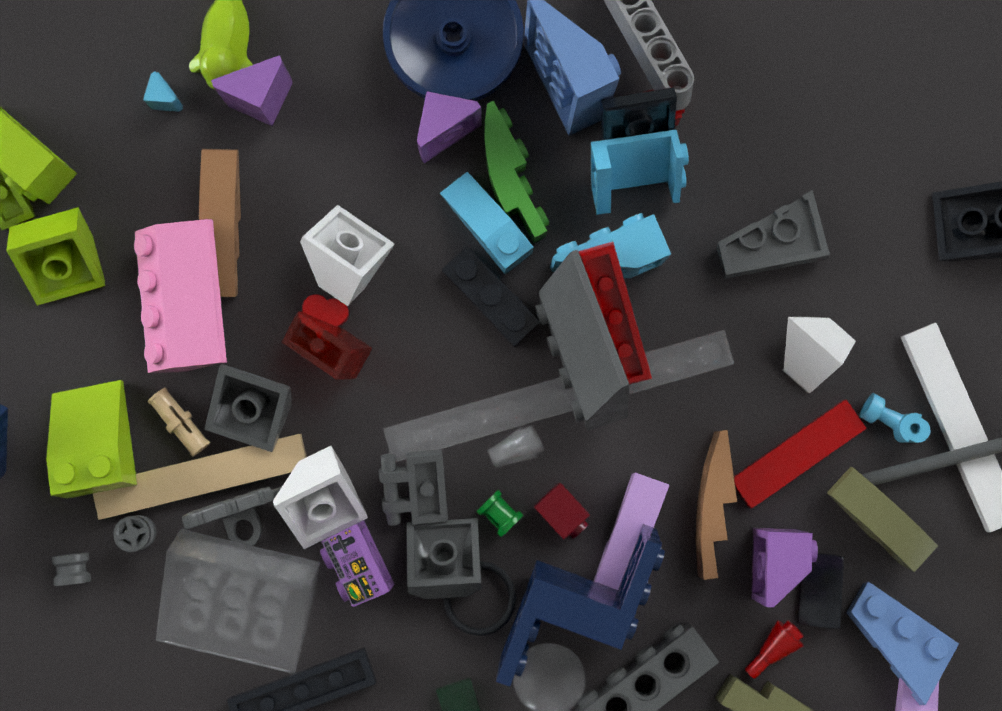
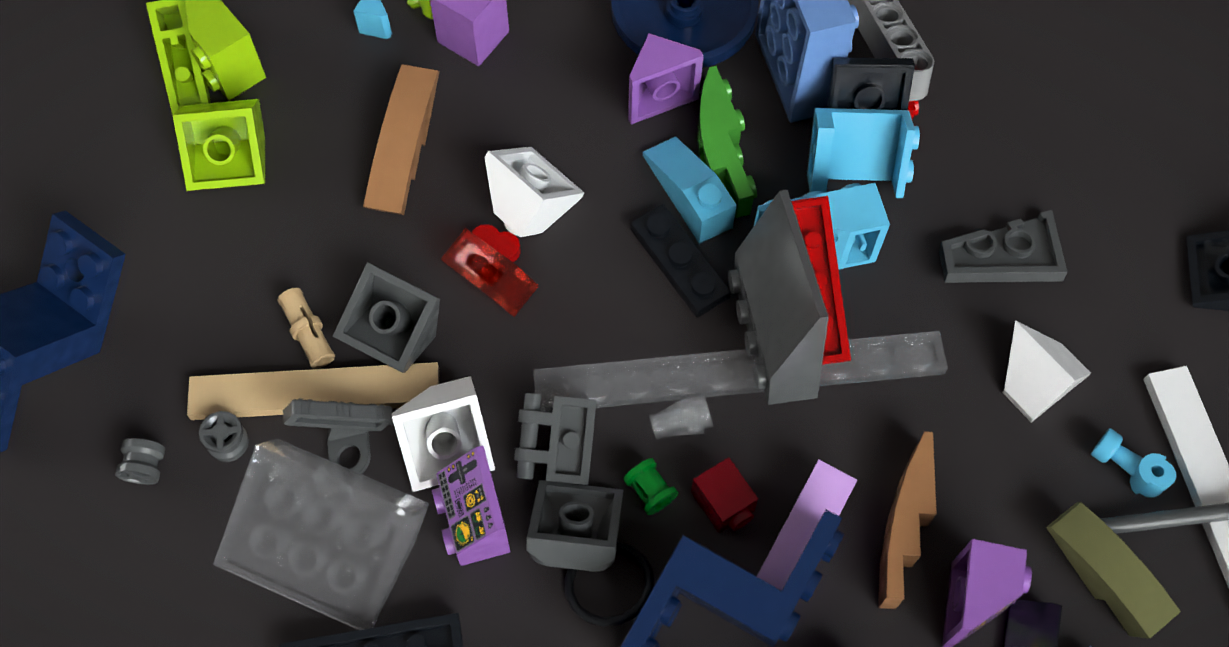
camera: 15 degrees right, 20 degrees down
(89, 441) = (201, 332): lime slope -> none
(180, 296) = (341, 196): bright pink slope -> none
(798, 453) = (1013, 484): red tile -> none

